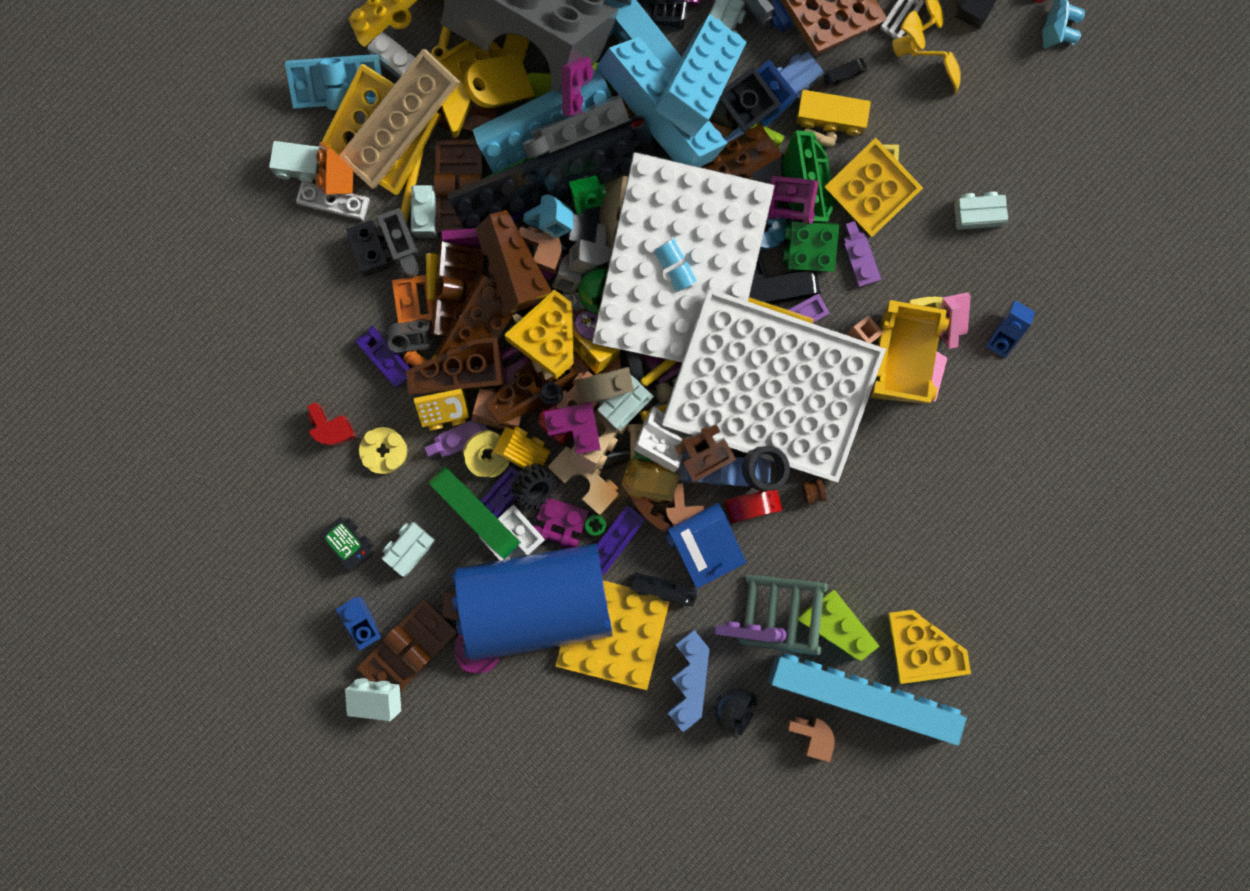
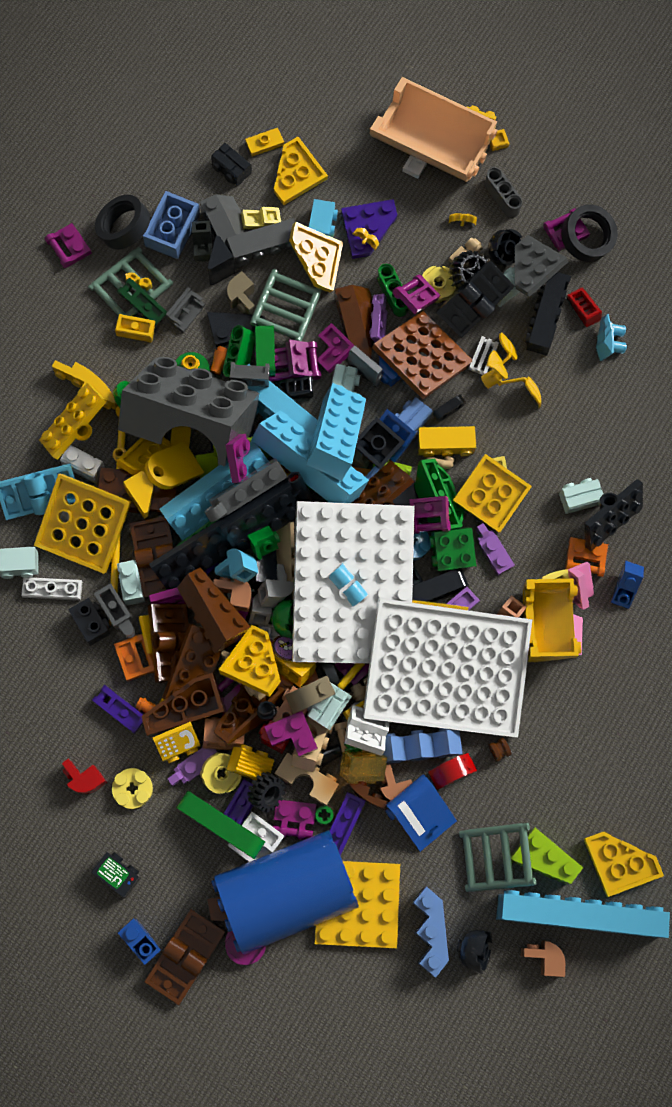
camera: 15 degrees left, 10 degrees down
(333, 173) = (50, 565): orange slope -> none
(373, 699) = (164, 1006): light aqua brick -> none
(399, 118) = (97, 511): tan plate -> none
(408, 548) = (169, 868): light aqua brick -> none
(411, 336) = (138, 686): dark grey piece -> none
(664, 589) = (392, 857): black hinge -> none
(708, 459) = (408, 738): reddish brown plate -> none
(751, 632) = (475, 877): medium lavender plate -> none
(783, 468) = (470, 732): black tyre -> none
(972, 280) = (577, 550): none -> orange plate
(1015, 239) = (613, 513): none -> black plate

